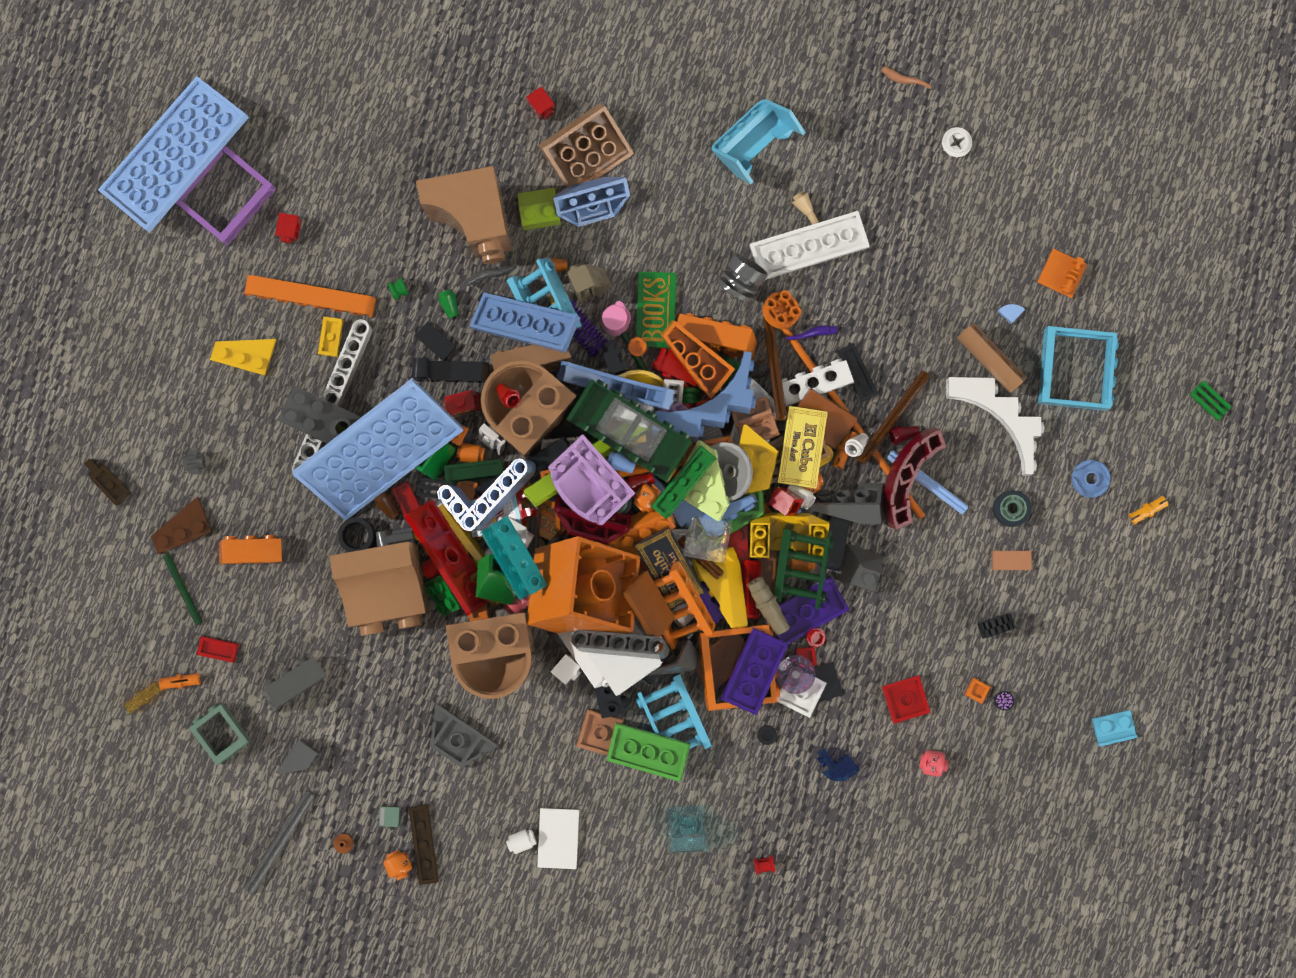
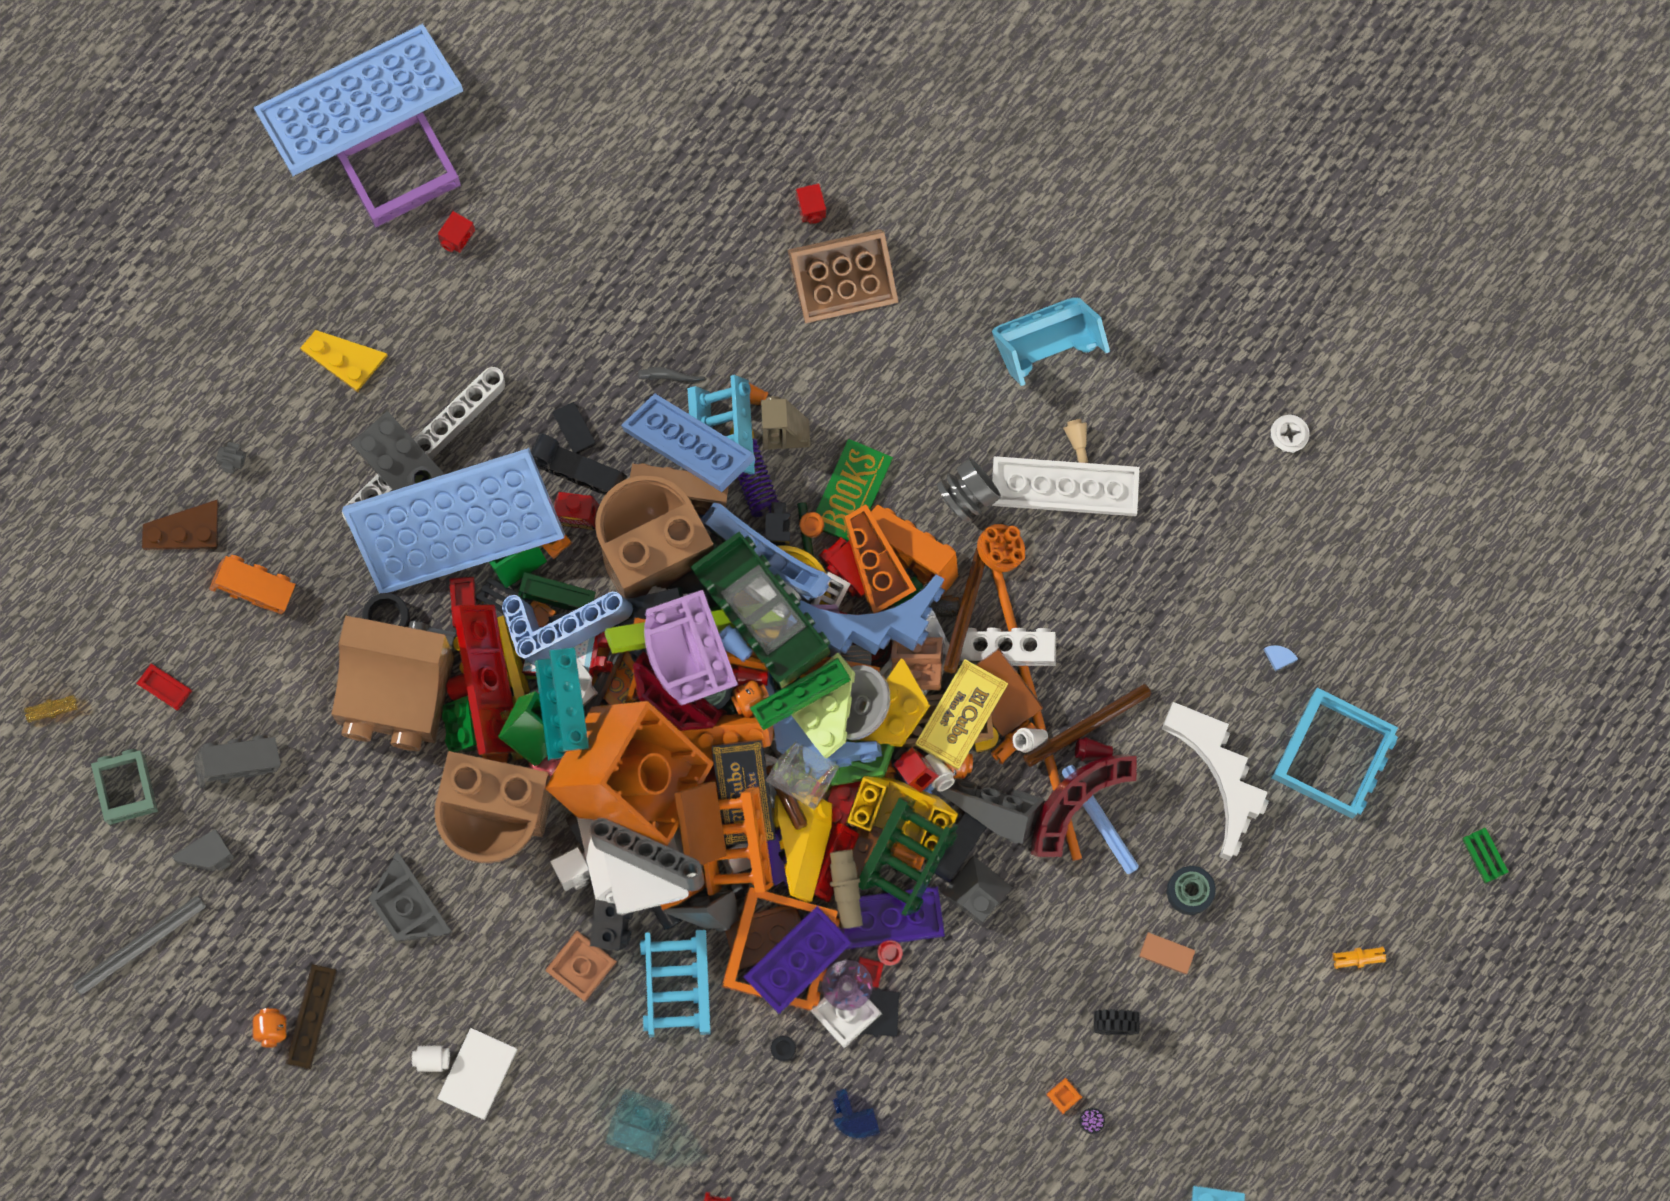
camera: 15 degrees right, 10 degrees down
(107, 482) = (119, 442): dark brown hinge -> none
(166, 683) = (103, 706): orange pin -> none
(182, 589) = (153, 600): dark green bar -> none
(310, 295) = (449, 319): orange beam -> none
(330, 337) = (452, 376): yellow plate -> none
(348, 843) = (219, 981): dark orange tile -> none
(387, 505) = (437, 595): reddish brown cone -> none
(389, 816) = (284, 966): sand green tile -> none
(398, 288) = (555, 350): green wheel -> none
(448, 302) = (608, 389): green cone -> none
(470, 453) = (562, 571): orange brick -> none
(473, 206) = (681, 285): medium nougat brick -> none
(491, 438) = (591, 563): white plate -> none
(509, 397) = (633, 514): red cone -> none
(538, 209) = (759, 323): lime slope -> none
(592, 200) = (825, 336): medium blue wedge -> none
(616, 319) = (799, 483): bright pink hat -> none
(648, 751) = (630, 1008): bright green tile -> none
(690, 395) = (852, 604): green wheel -> none
(816, 331) = (1033, 589): dark purple animal -> none
(862, 381) = (1067, 667): black tile -> none
(897, 77) = (1245, 330): nougat animal -> none
(905, 699) = (971, 1071): red plate -> none
(933, 763) = (974, 1162): coral head -> none
(991, 357) = (1233, 698): medium nougat brick -> none
(1062, 273) = (1360, 634): orange hinge -> none
(1102, 478) = (1302, 907): medium blue tile -> none

